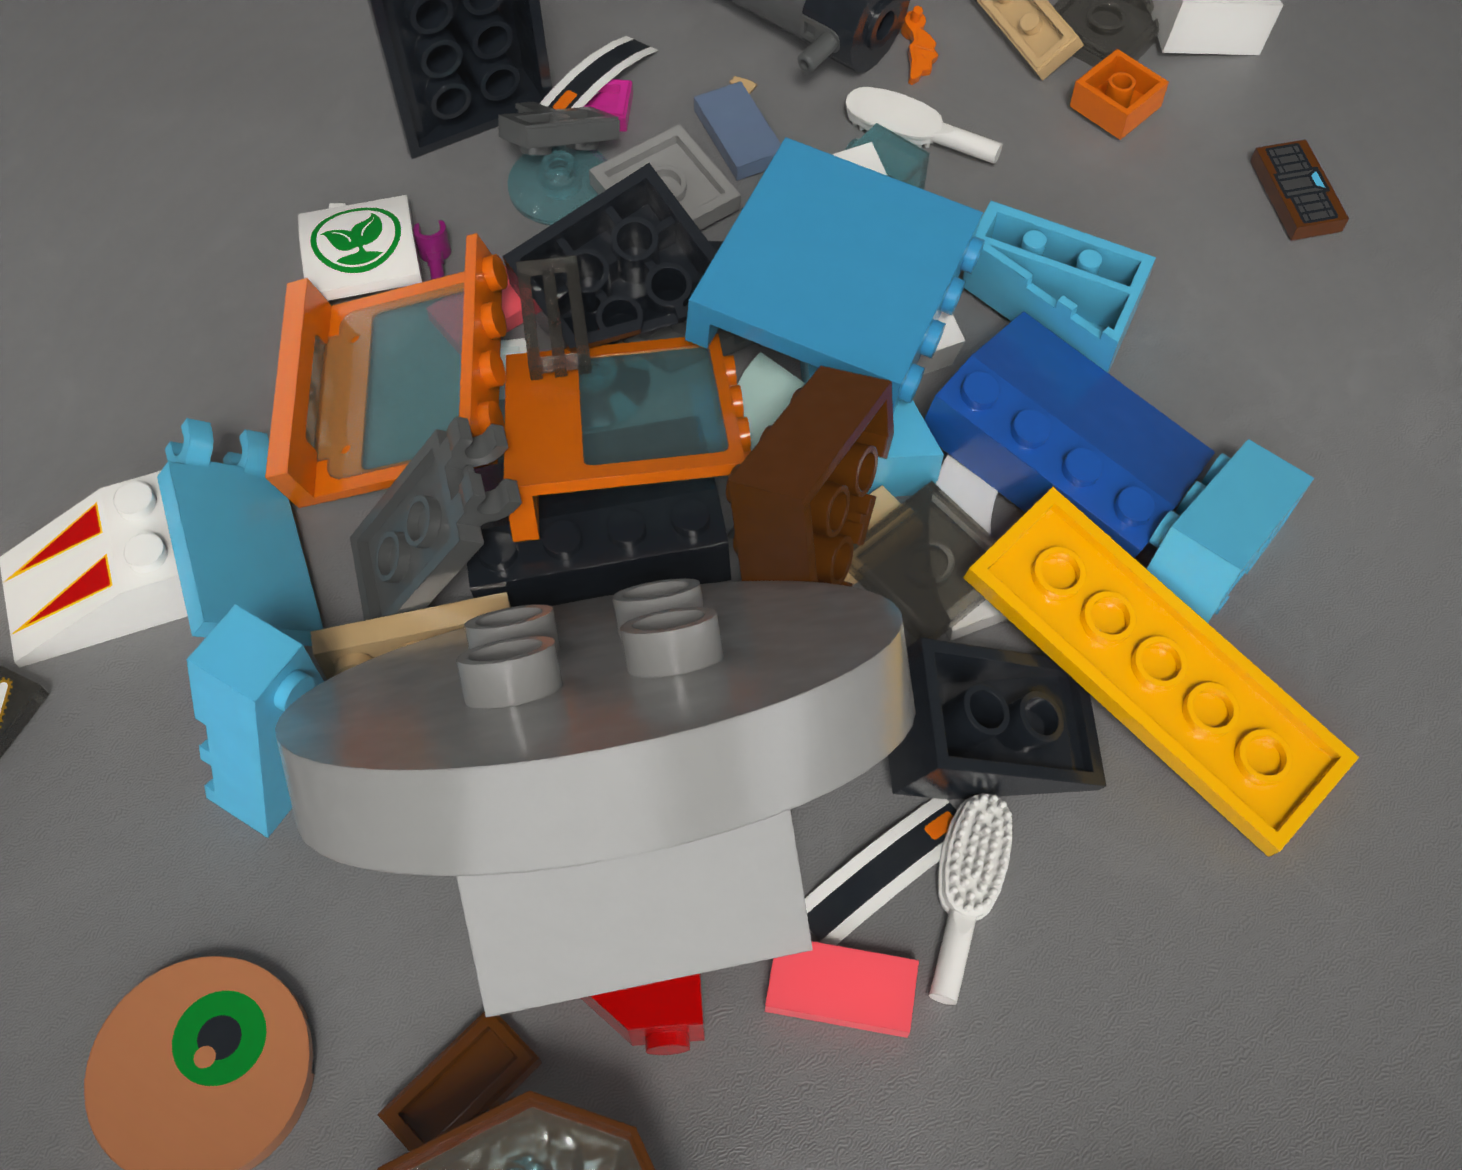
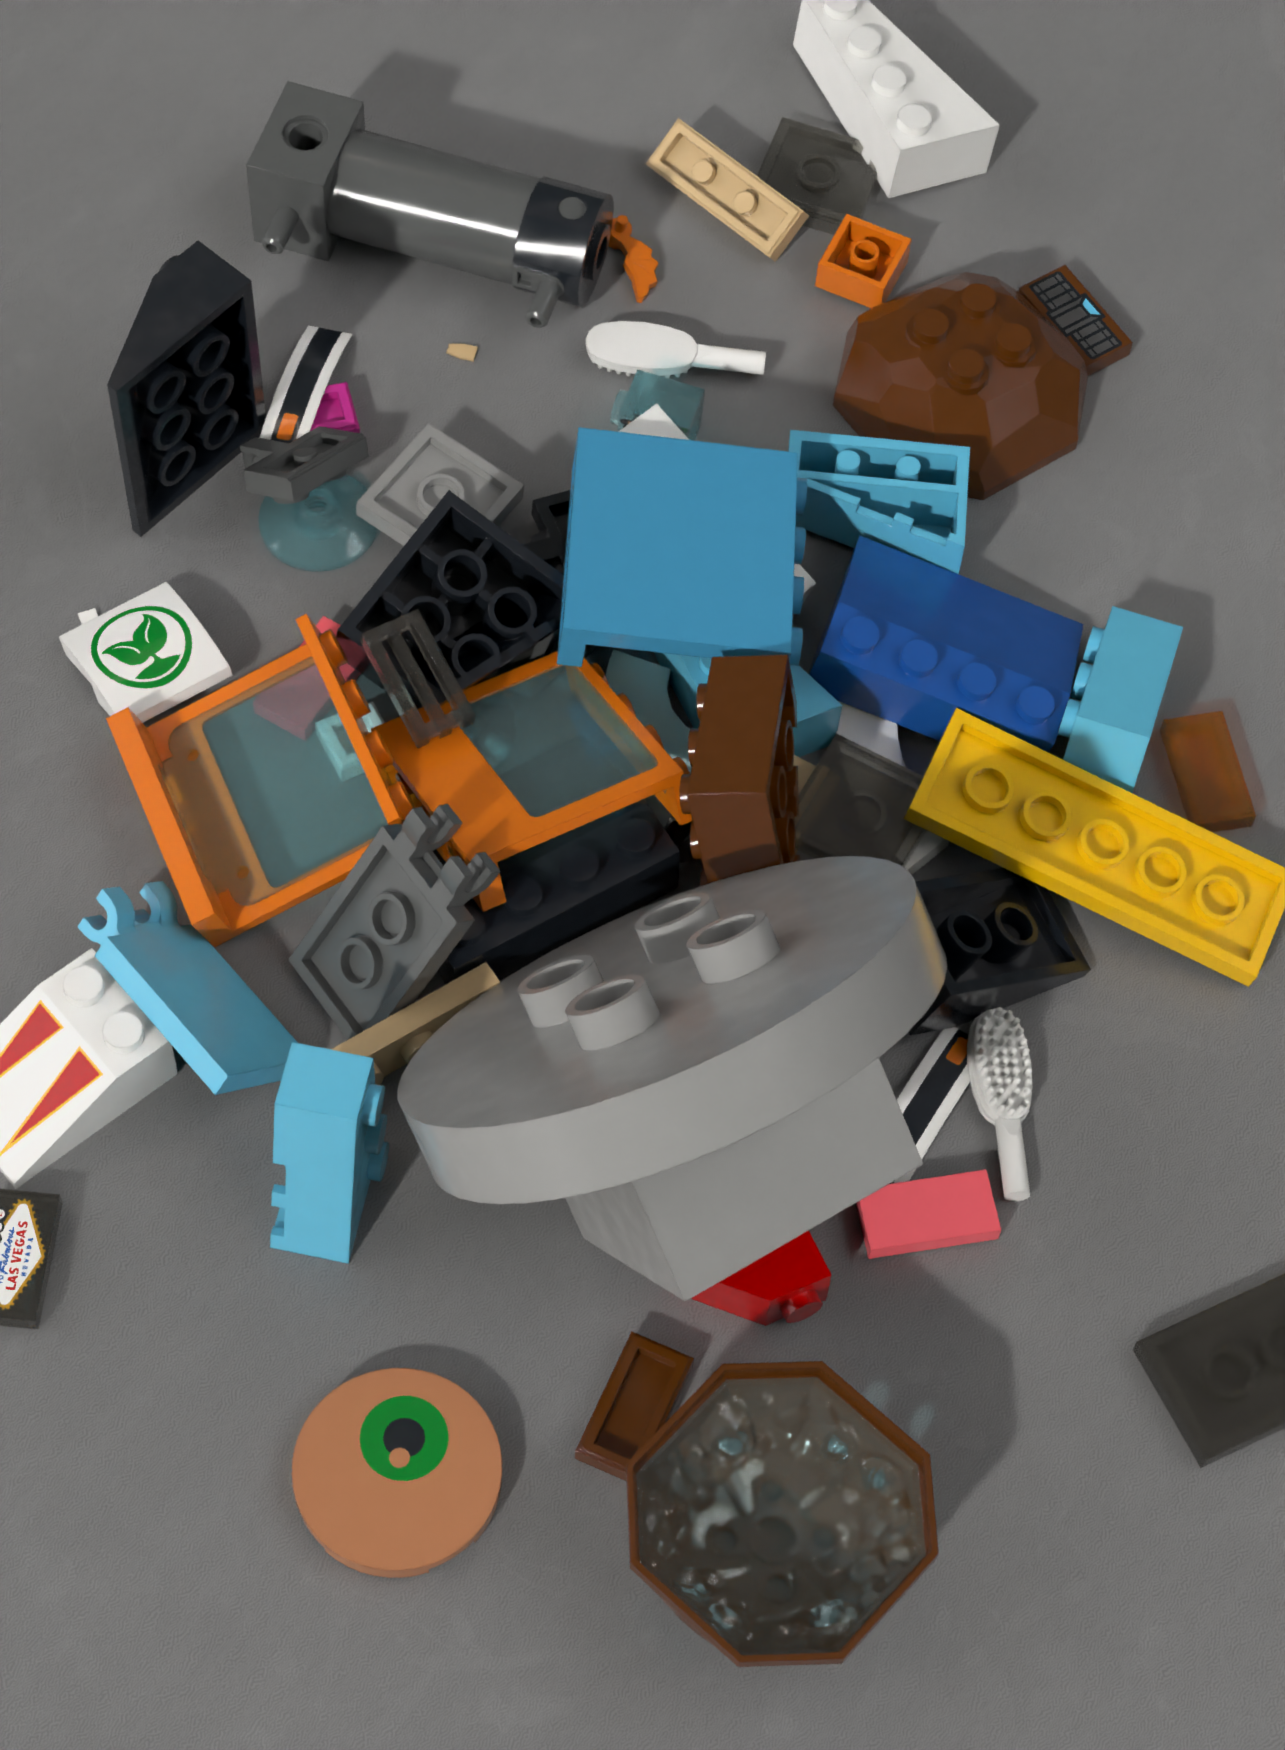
camera: 25 degrees left, 0 degrees up
(433, 248) = (224, 636): magenta hand -> none
(737, 129) = (484, 408): sand blue tile -> none
(1190, 199) = (969, 370): none -> reddish brown rock
(1295, 627) = (1207, 771): none -> clear orange tile

